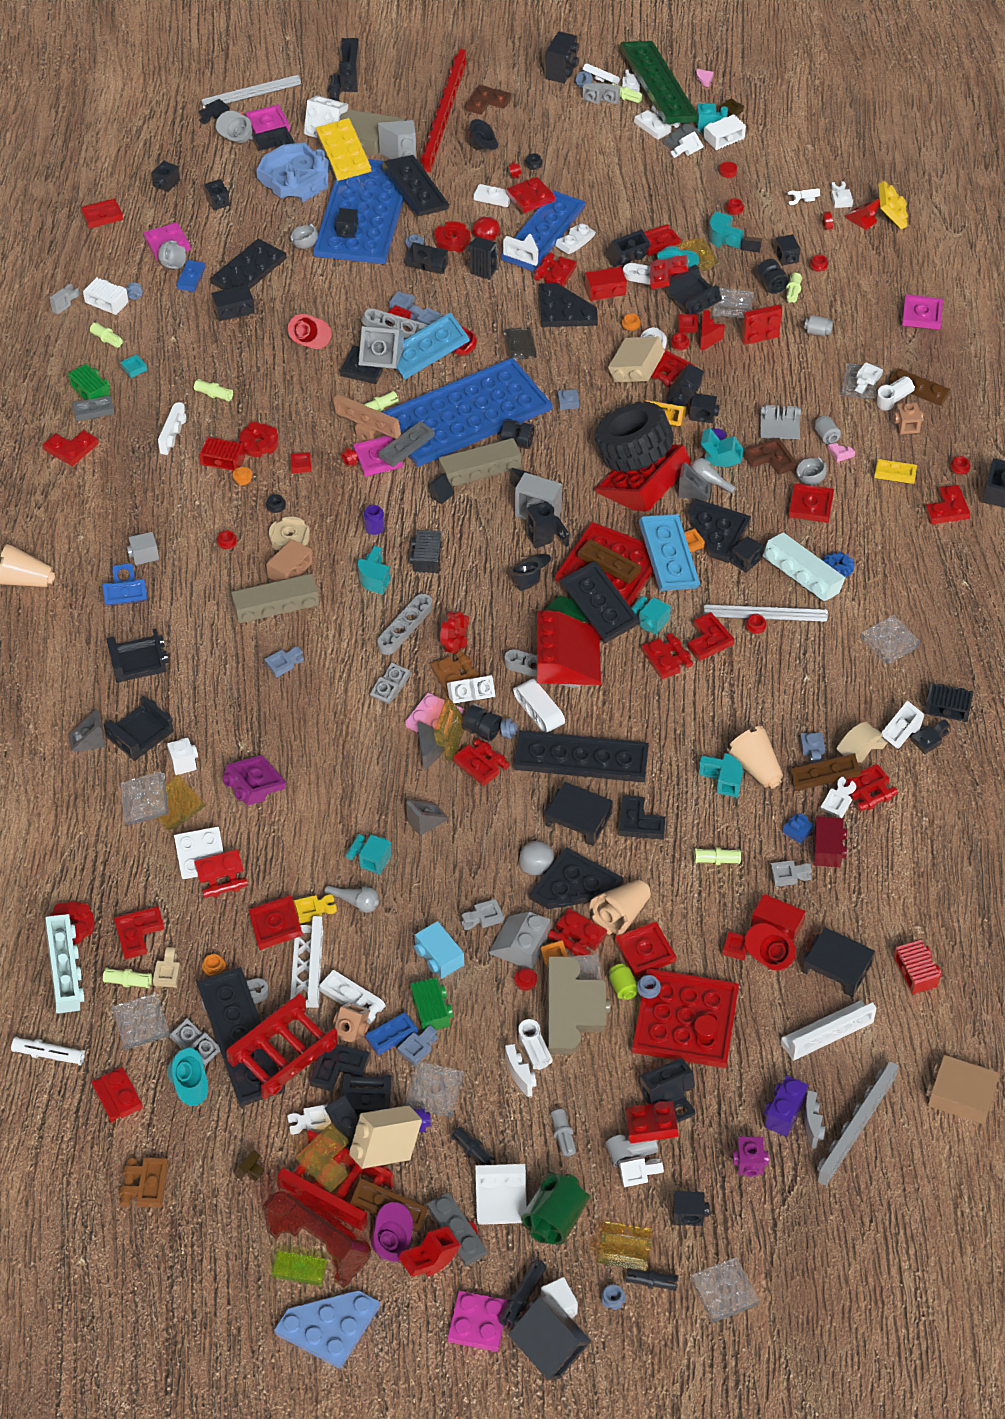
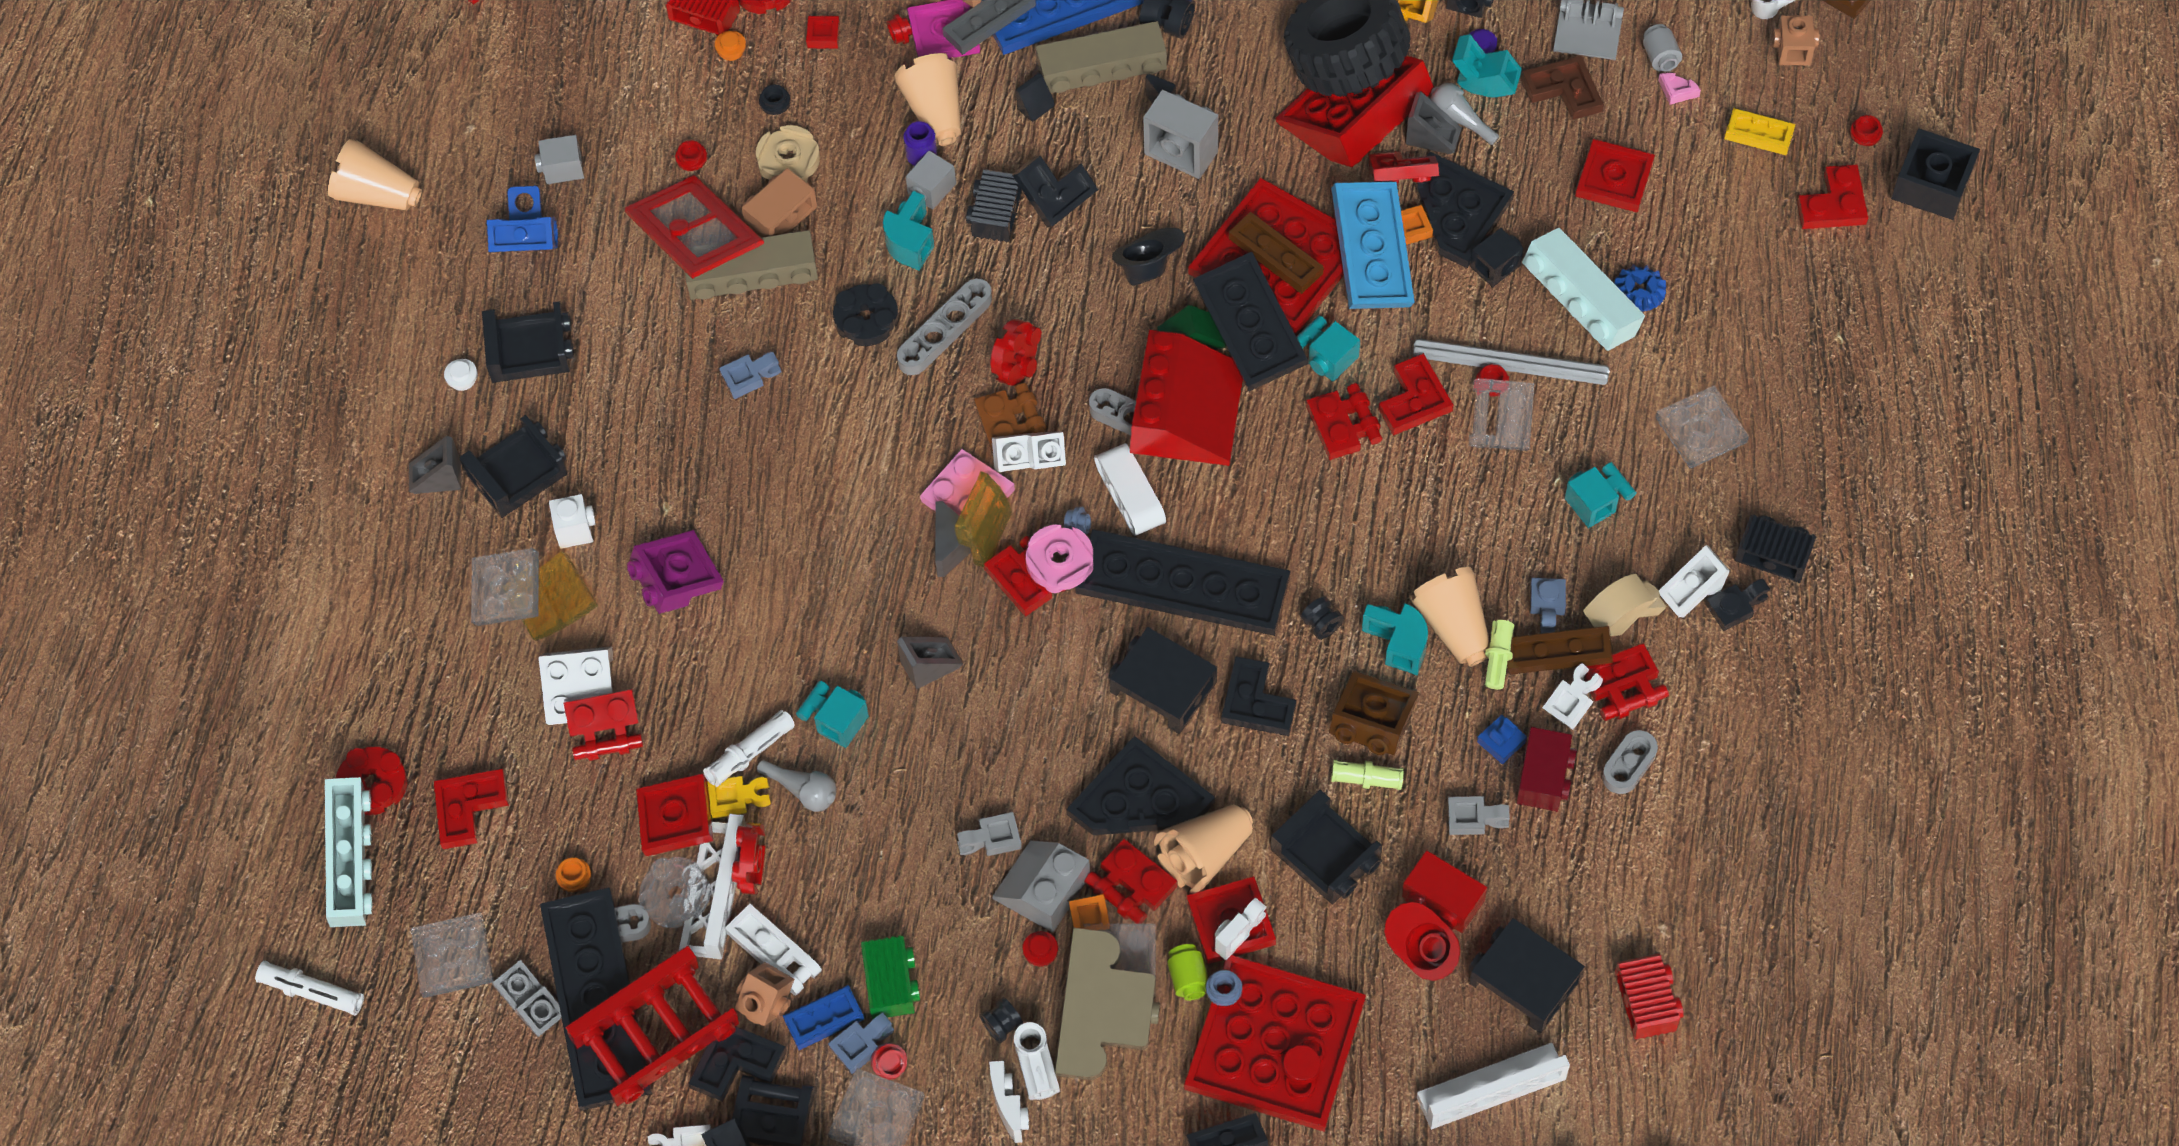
camera: 10 degrees right, 10 degrees up
(96, 678) = (460, 374): none -> white plate
(117, 1094) = (402, 1069): red plate -> none
(127, 978) = (442, 881): yellowish green pin -> none
(167, 971) = (503, 878): tan plate -> none
(188, 1076) = (509, 1057): teal piece -> none
(236, 578) = (693, 226): none -> red door
(279, 957) = (661, 879): none -> clear plate
(313, 882) = (738, 756): none -> white pin
(329, 945) = (750, 867): none -> red plate
(356, 611) = (861, 298): none -> black plate
(377, 488) = (933, 94): none -> light nougat cone
(384, 537) = (932, 178): none -> light grey brick
(391, 684) = (909, 427): light grey slope -> none
(438, 950) = (914, 887): medium azure piece -> none
(438, 1054) = (889, 1061): none -> plate
(463, 543) = (1052, 196): none -> black plate
(480, 721) = (1032, 508): black wheel -> none
(501, 757) = (1058, 575): none -> bright pink plate
(507, 1022) = (1001, 1020): none -> black wheel
(536, 857) = (1087, 747): light grey hair -> none
(543, 525) = (1182, 180): black piece -> none
(650, 953) = (1235, 932): none -> white plate
(673, 768) = (1322, 618): none -> black wheel
(676, 507) = (1392, 167): none -> red plate
(698, 902) = (1325, 849): none -> black panel
(715, 820) = (1373, 713): none -> reddish brown plate
(735, 946) = (1370, 930): red plate -> none
(773, 642) = (1513, 414): none -> clear plate
(788, 776) = (1499, 653): none -> yellowish green axle
(811, 471) = (1624, 120): light grey hair -> none
(832, 682) = (1596, 497): none -> teal brick
(879, 834) = (1627, 763): none -> light grey plate

